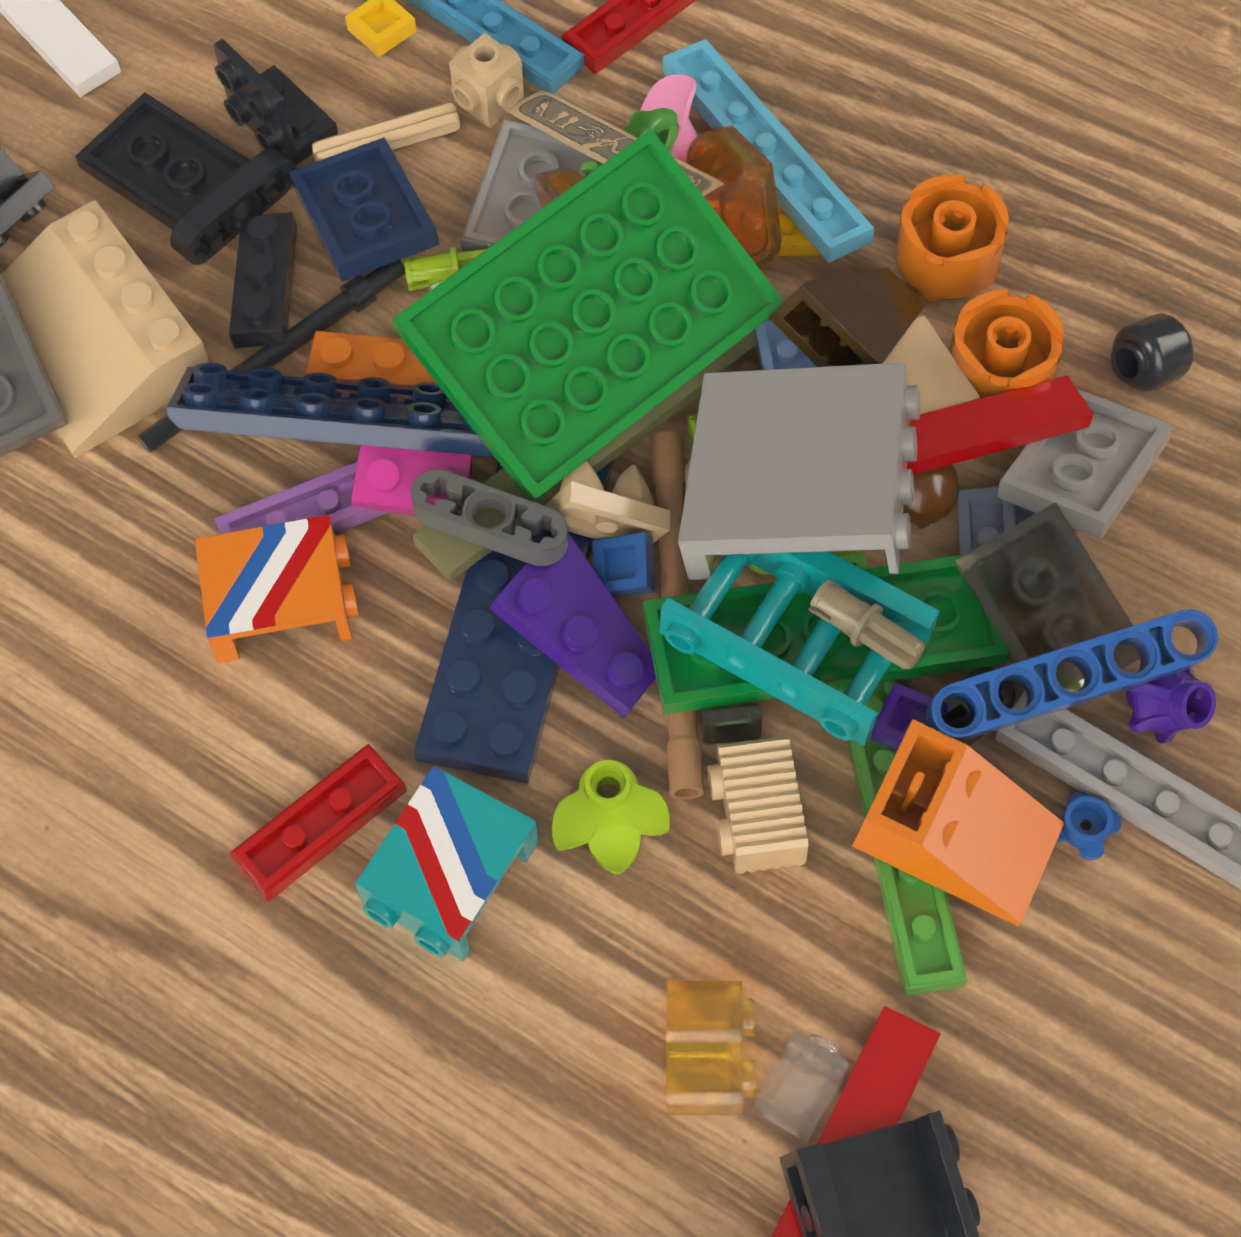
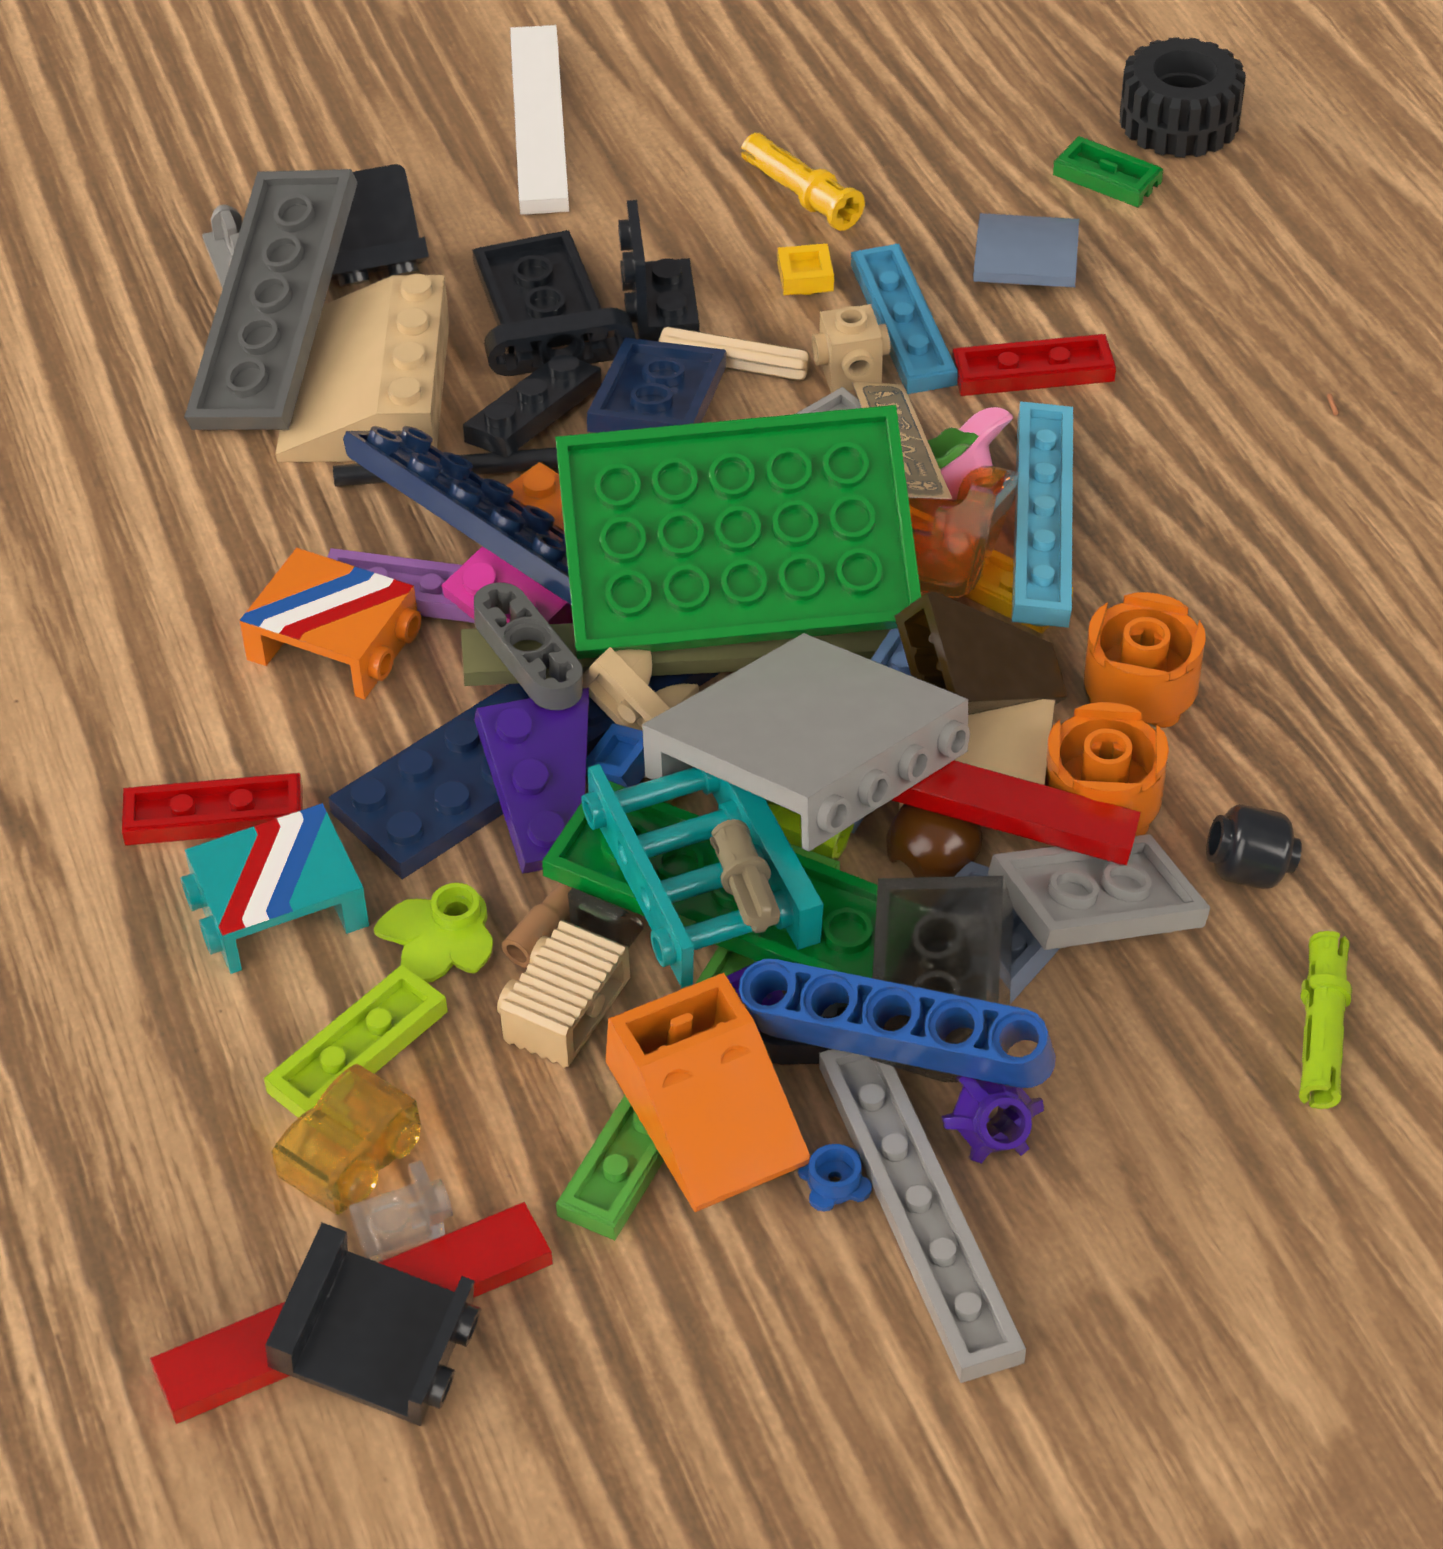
camera: 35 degrees right, 15 degrees down
(635, 960) = (364, 1034): none -> lime plate

